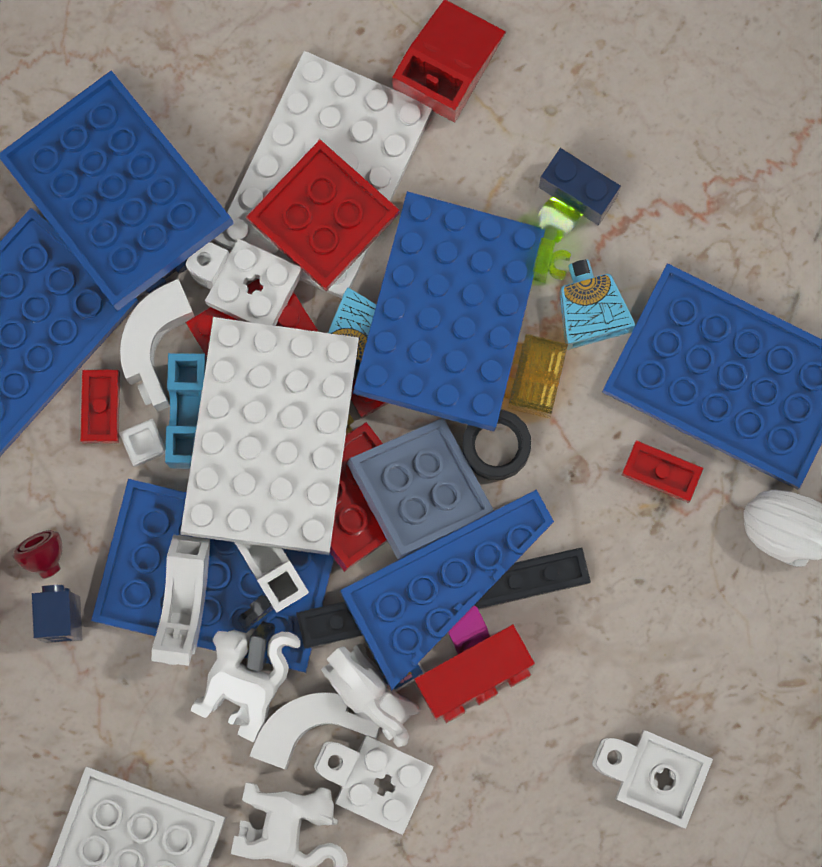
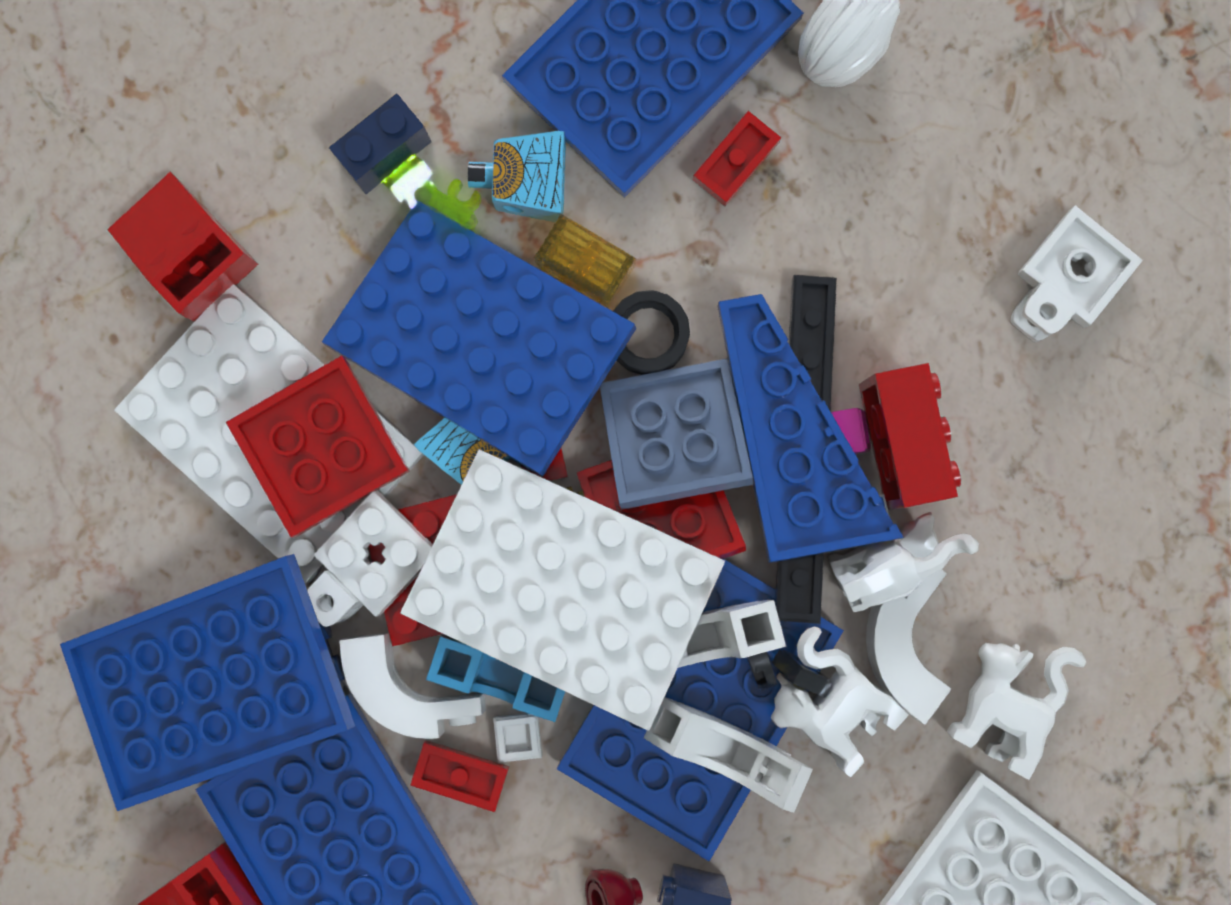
camera: 75 degrees left, 5 degrees up
(357, 776) = (972, 605): white plate -> none

